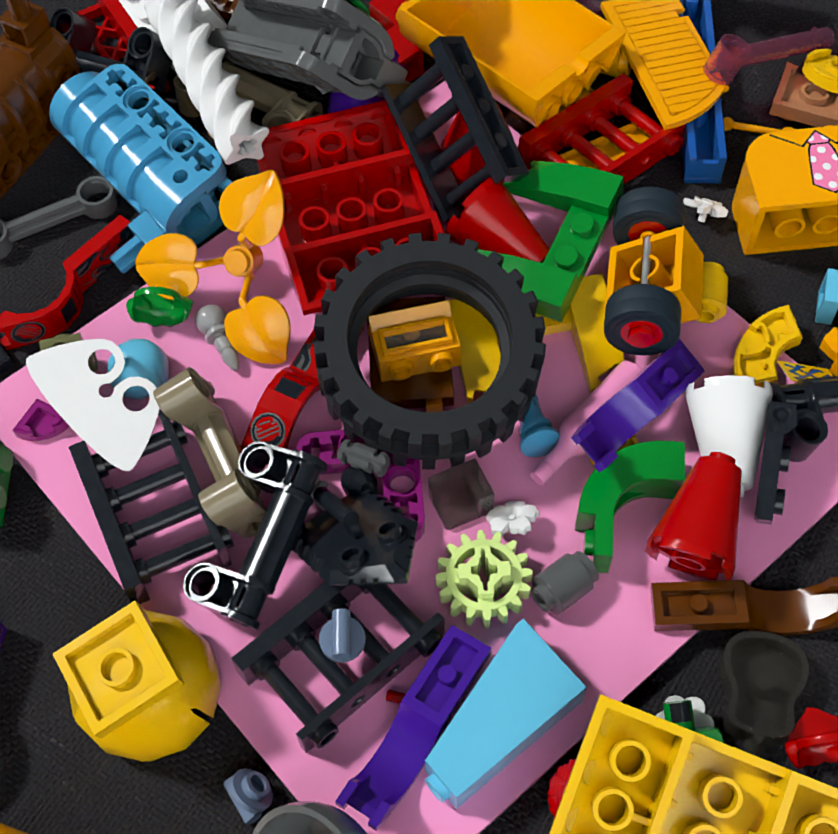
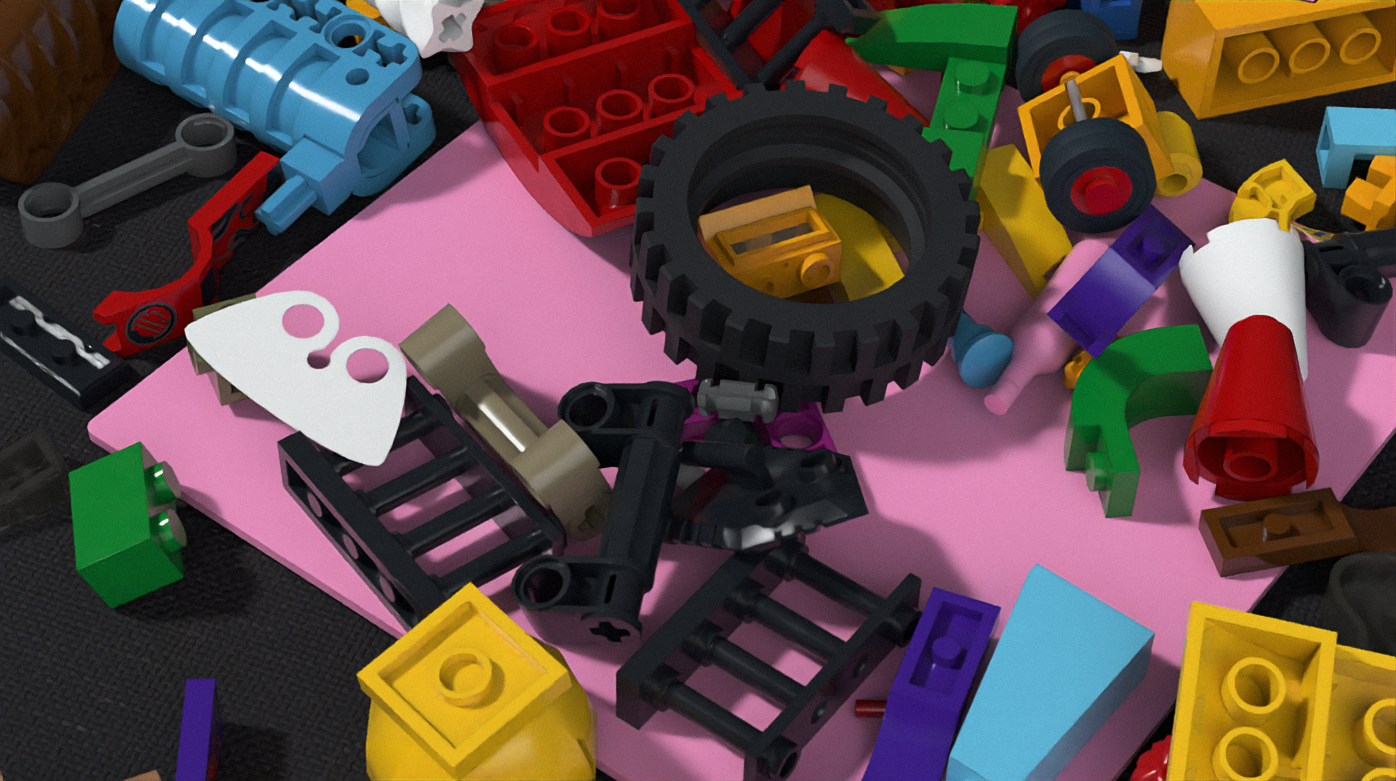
camera: 15 degrees left, 15 degrees down
(40, 423) = (211, 434): magenta tile -> none
(141, 360) = (355, 320): medium azure hair -> none
(158, 311) = (359, 258): green piece -> none
(211, 323) = (446, 274): light grey bar -> none
(257, 212) = (368, 189): light orange plant -> none
(285, 399) = (598, 336): red piece -> none
(342, 637) = (775, 621): sand blue plate -> none
(460, 494) = (891, 437): clear smoke panel -> none
(464, 579) = (952, 534): yellowish green gear -> none
(512, 516) = (974, 459): white plant -> none
(564, 582) = (1076, 525): dark grey brick -> none
(776, 458) = (1329, 331): black hinge -> none

